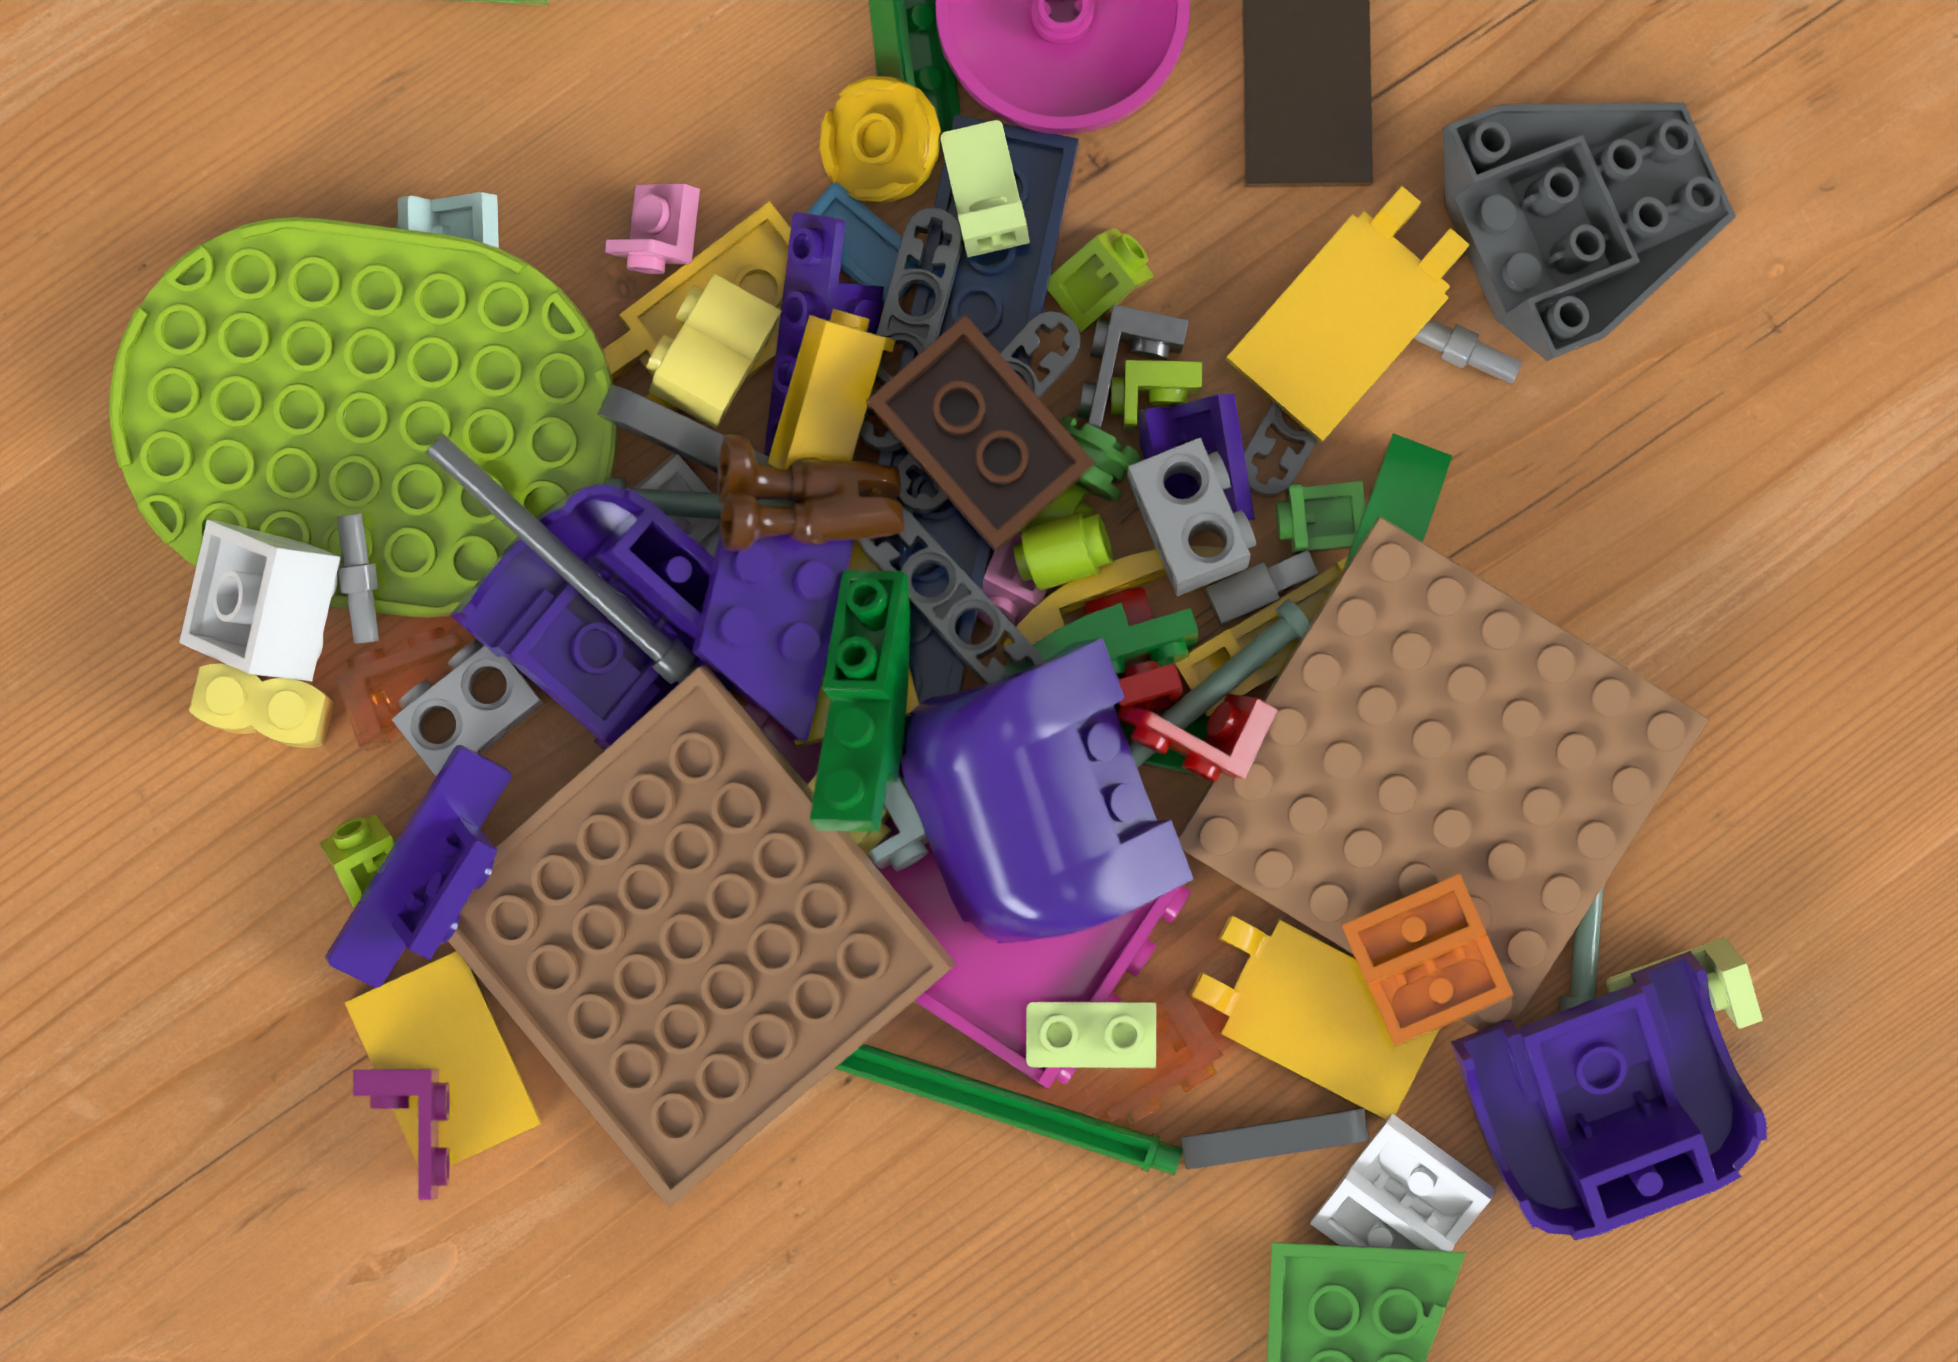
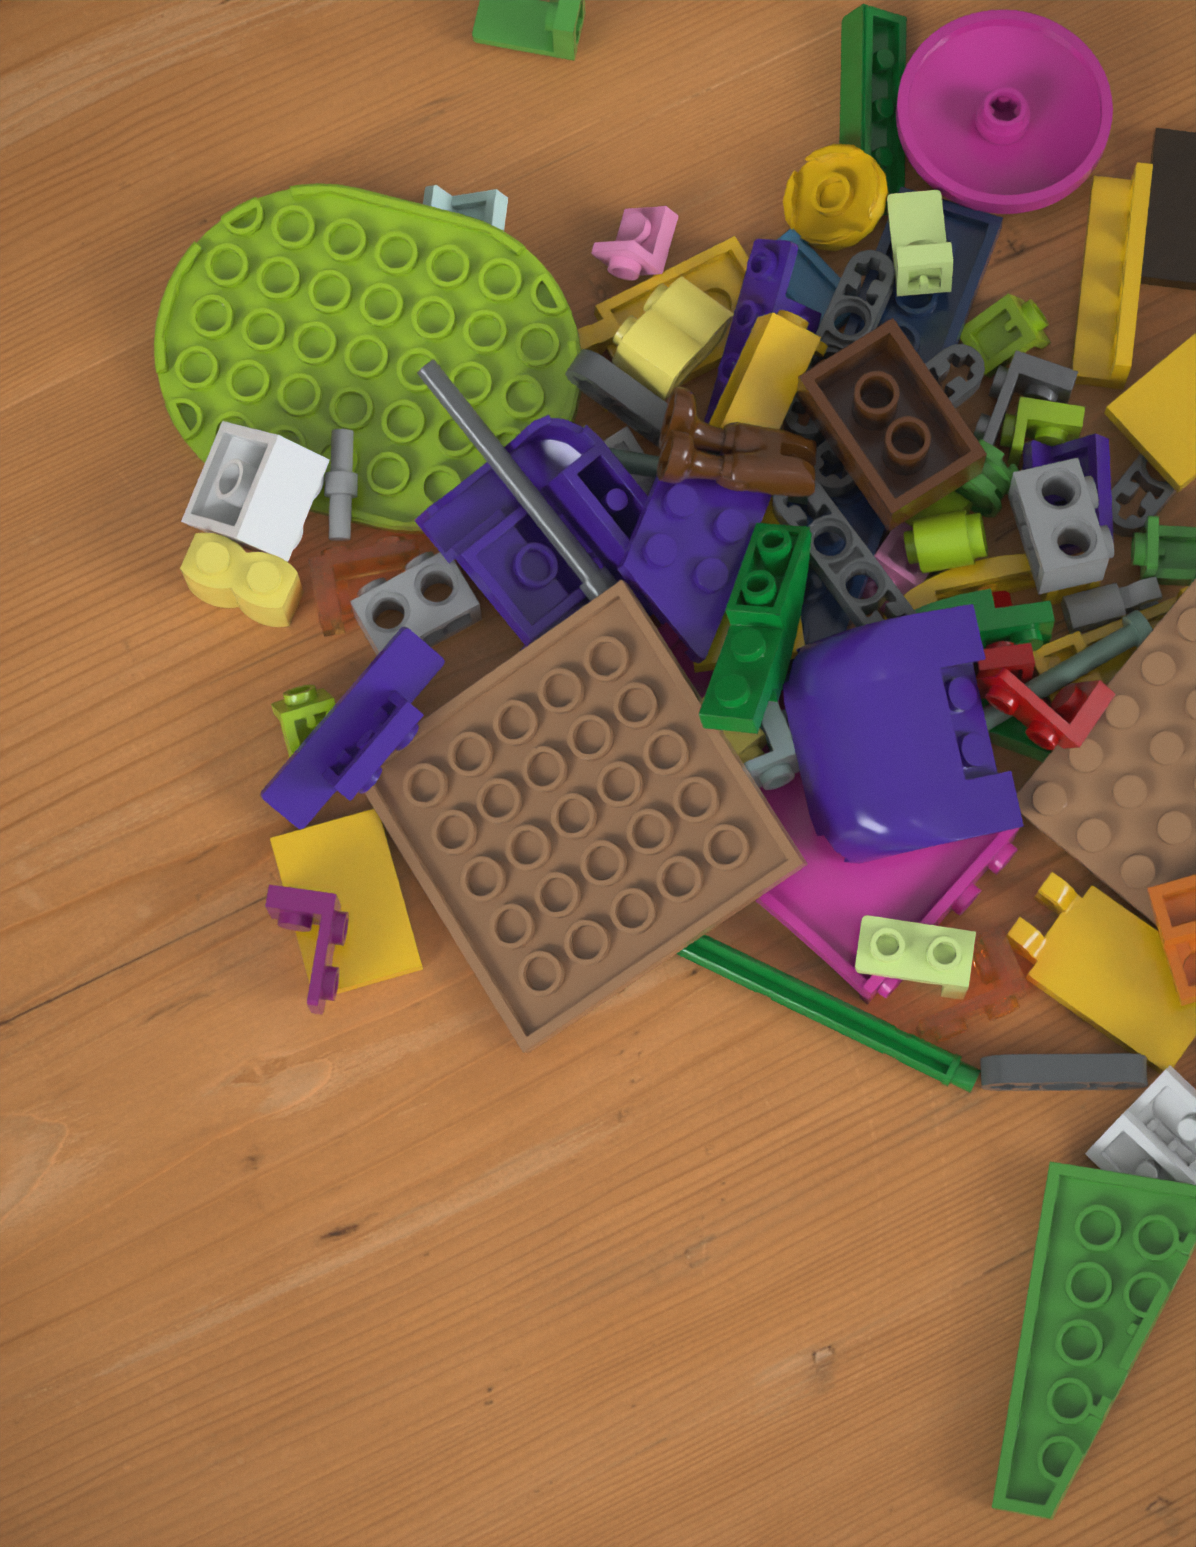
camera: 15 degrees right, 10 degrees down
(1213, 191) = (1111, 278): none -> yellow fence

